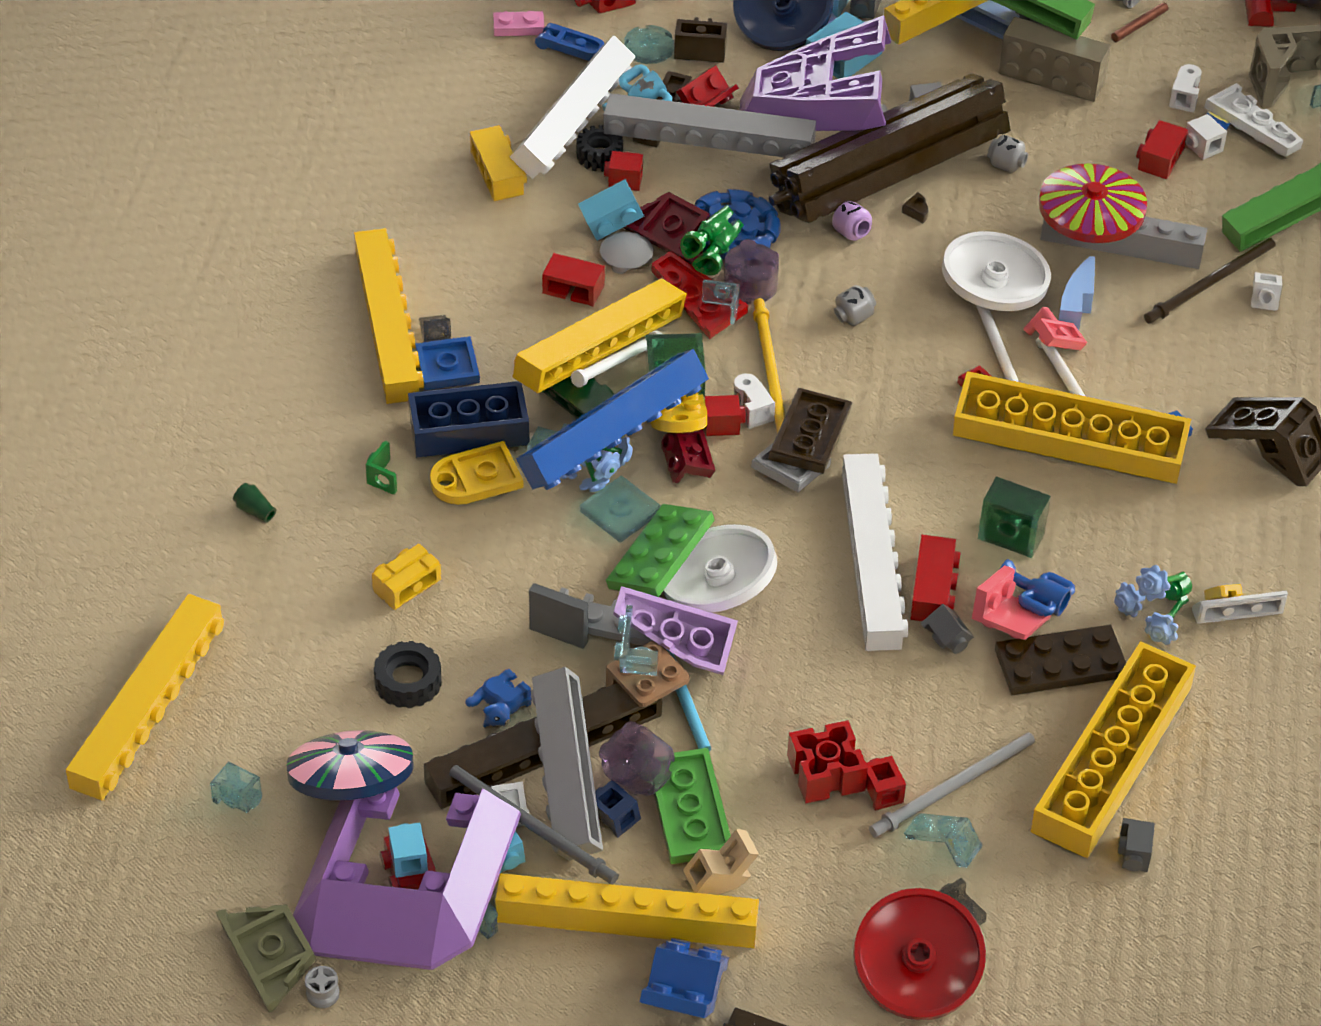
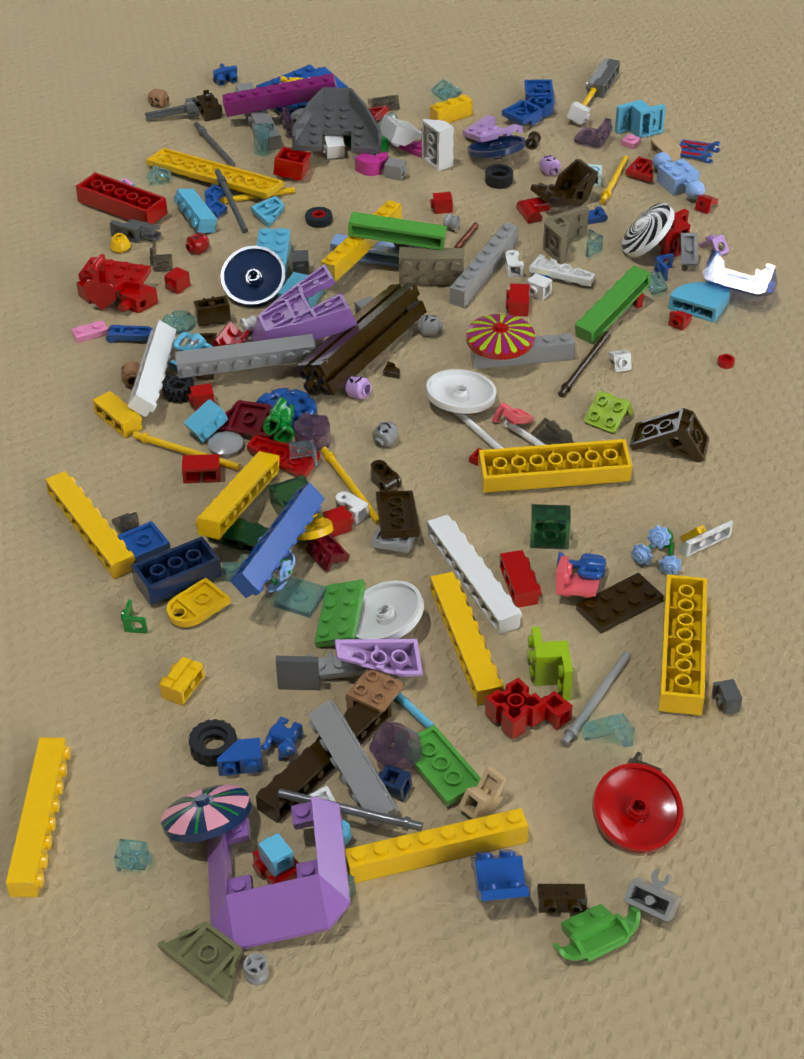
camera: 20 degrees left, 5 degrees down
(252, 501) = (52, 665): dark green cone -> none
(434, 707) = (241, 758): none -> blue slope
(521, 210) = (146, 438): none -> yellow bar
(540, 103) = (129, 373): none -> medium nougat head
(581, 377) = (241, 521): white bar -> none
(637, 660) = (366, 683): clear light blue bracket -> none
(743, 75) = (248, 323): none -> white wheel
(814, 635) = (465, 636): none -> yellow brick
(821, 367) = (384, 476): none -> dark brown piece
(906, 714) = (550, 663): none -> lime bracket
(948, 629) = (545, 605): dark grey brick -> none
(1078, 293) = (515, 390): light blue slope -> none
(1096, 377) = (551, 433): none -> clear smoke bracket
(1138, 77) = (483, 265): none -> light grey brick
(1200, 367) = (608, 412): none -> lime bracket

